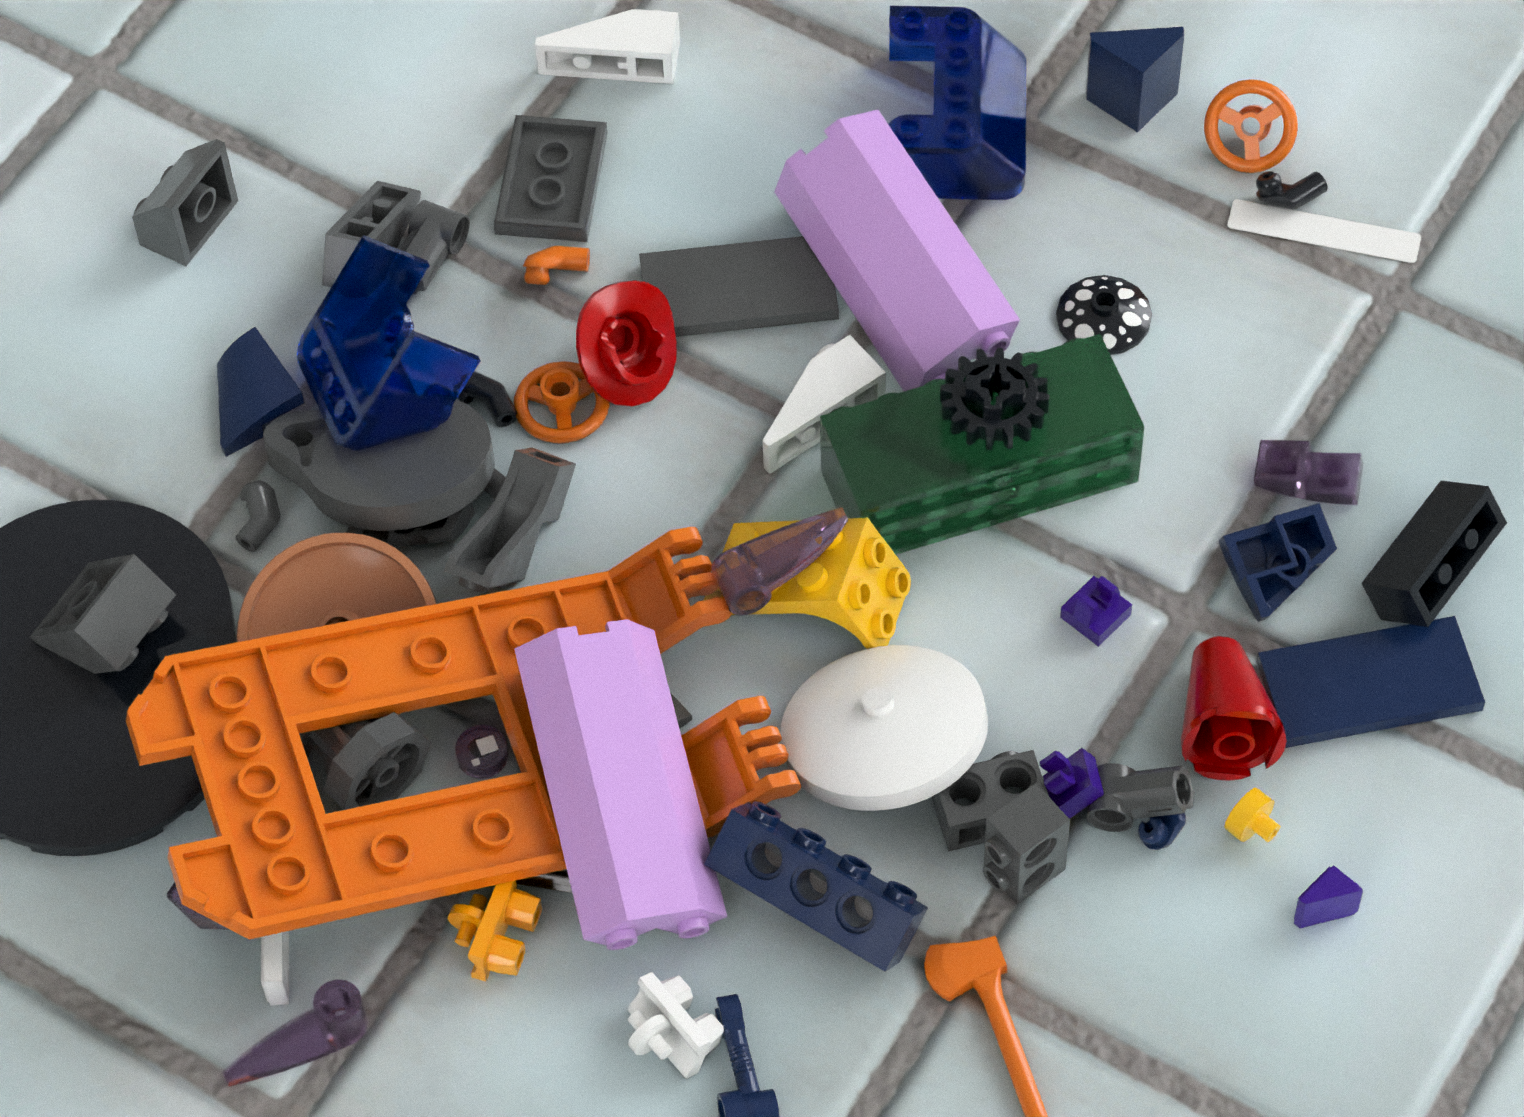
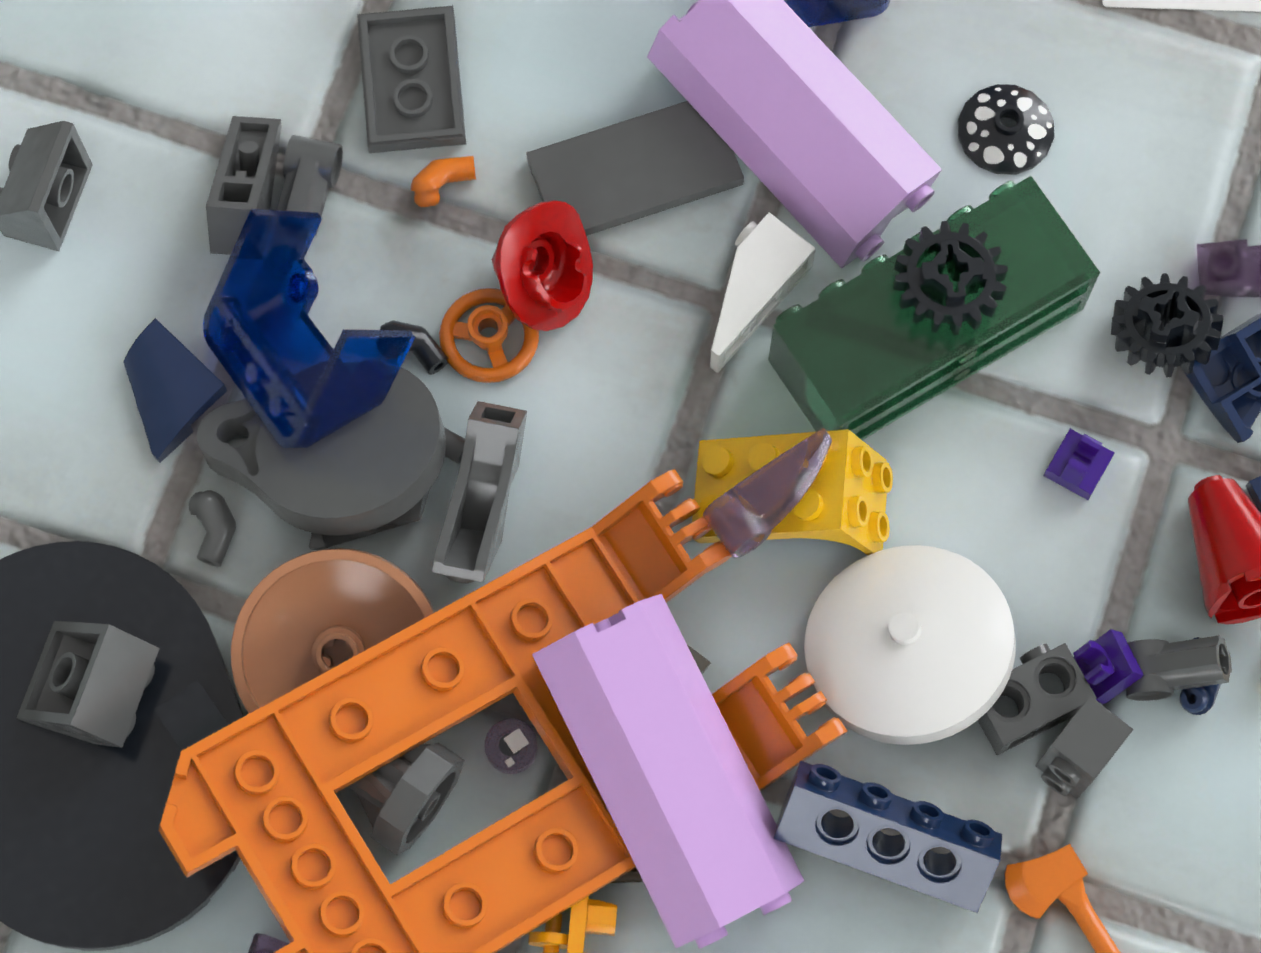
camera: 15 degrees left, 15 degrees up
(1210, 501) = (1188, 337): none -> black gear

